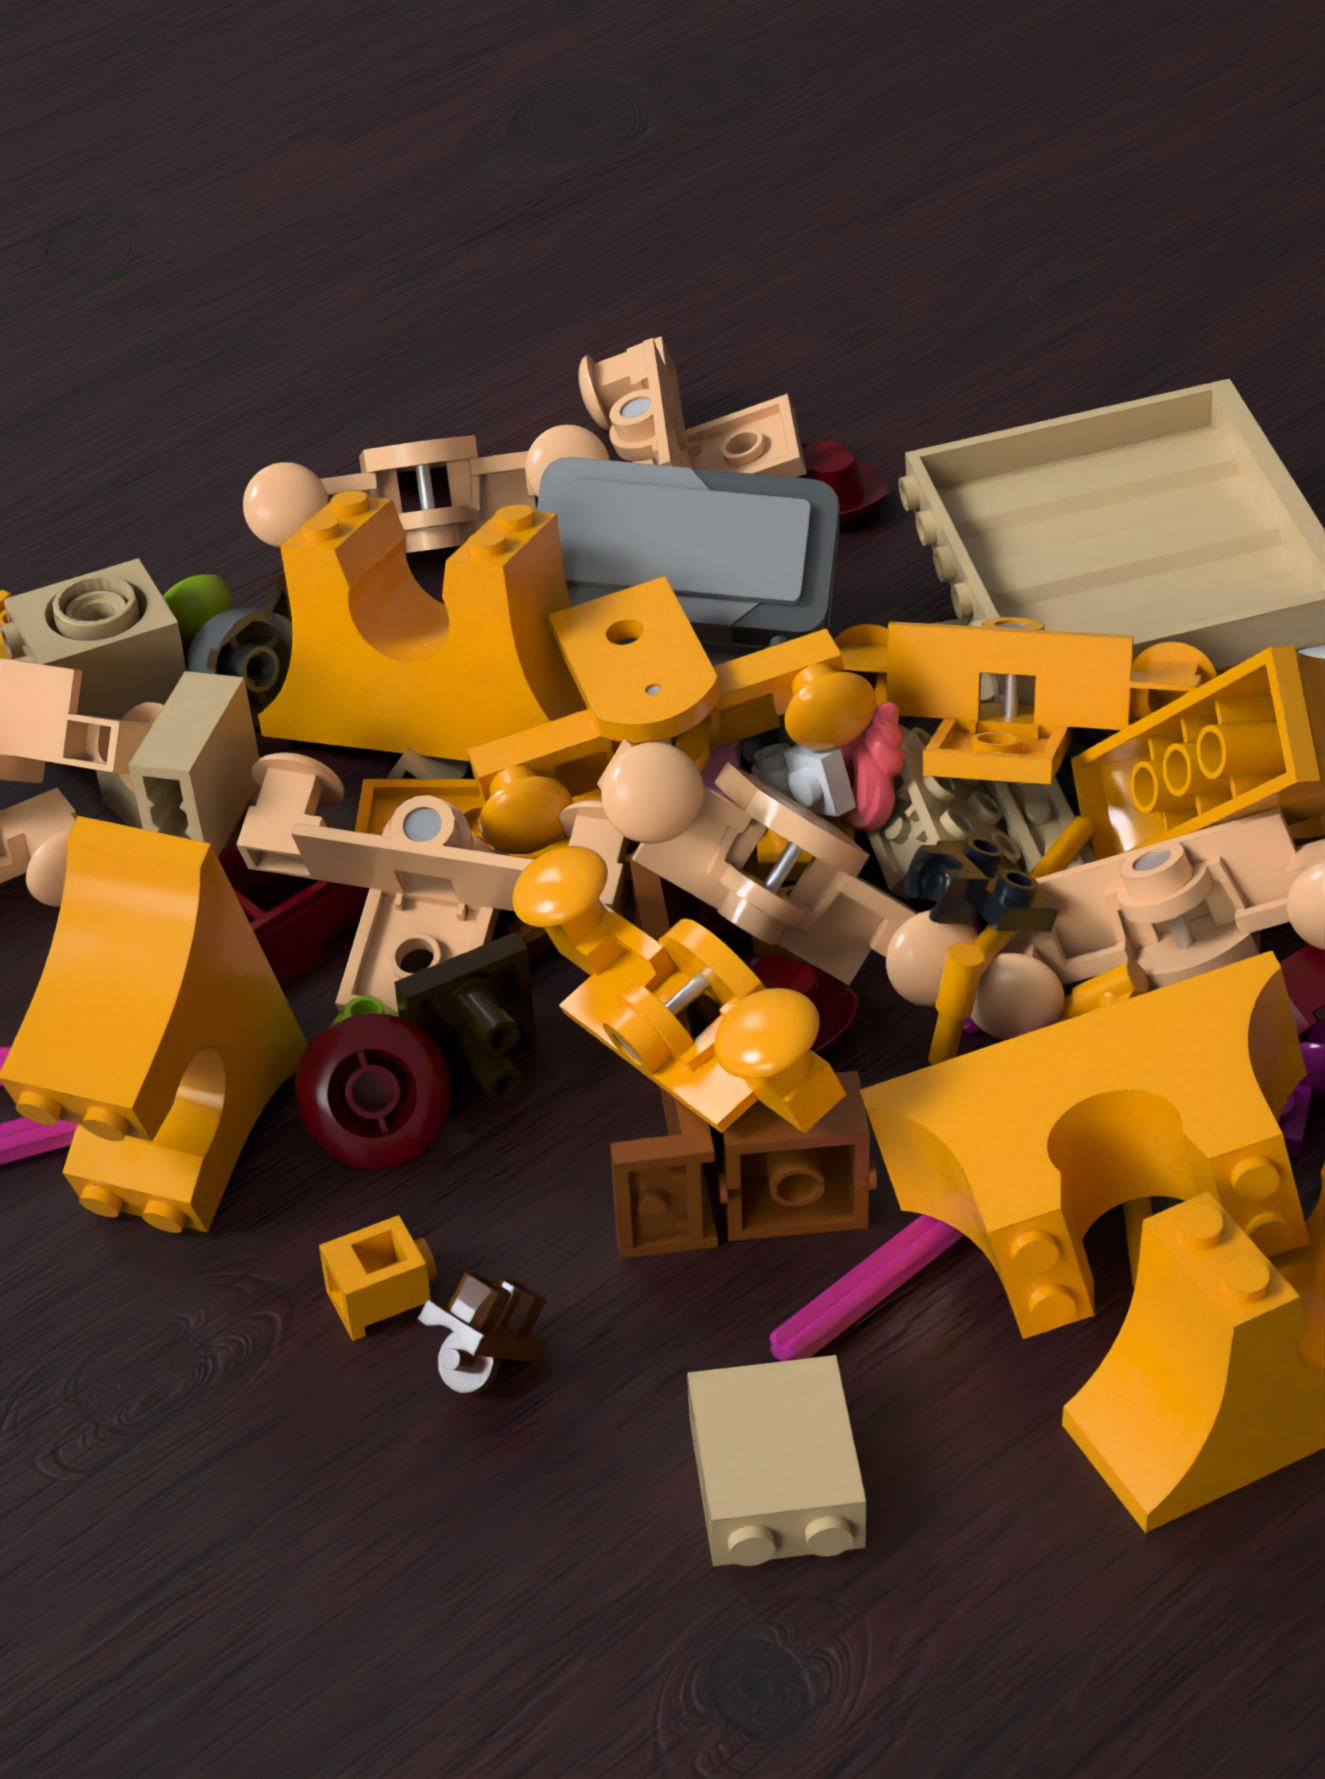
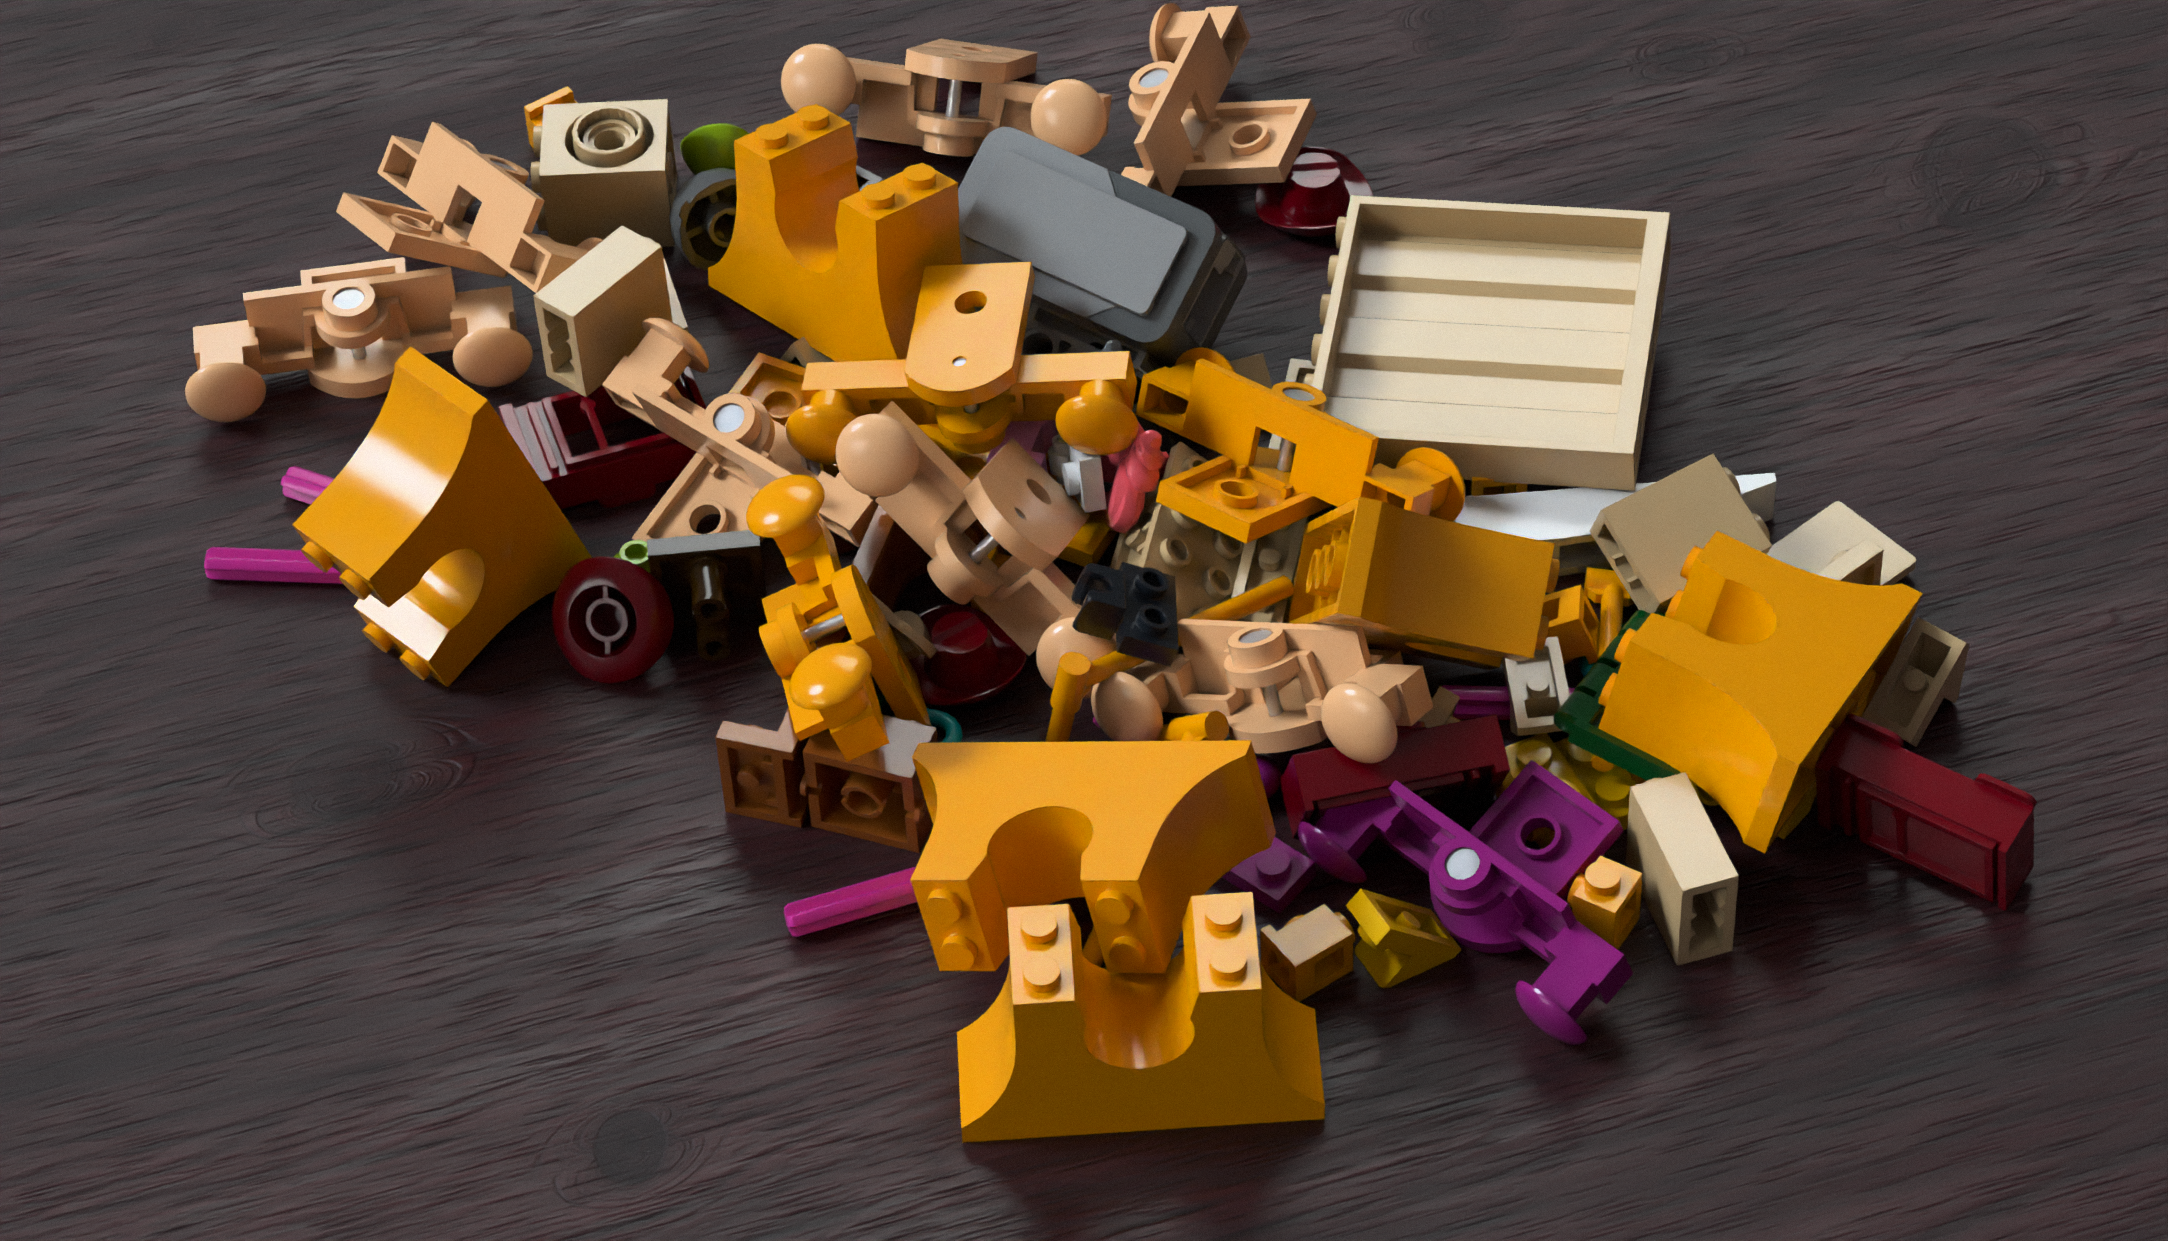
camera: 25 degrees right, 5 degrees up
(376, 1274) = (535, 760): light orange brick -> none
(486, 1325) = (578, 831): reddish brown hips -> none
(776, 1461) = (727, 995): tan brick -> none

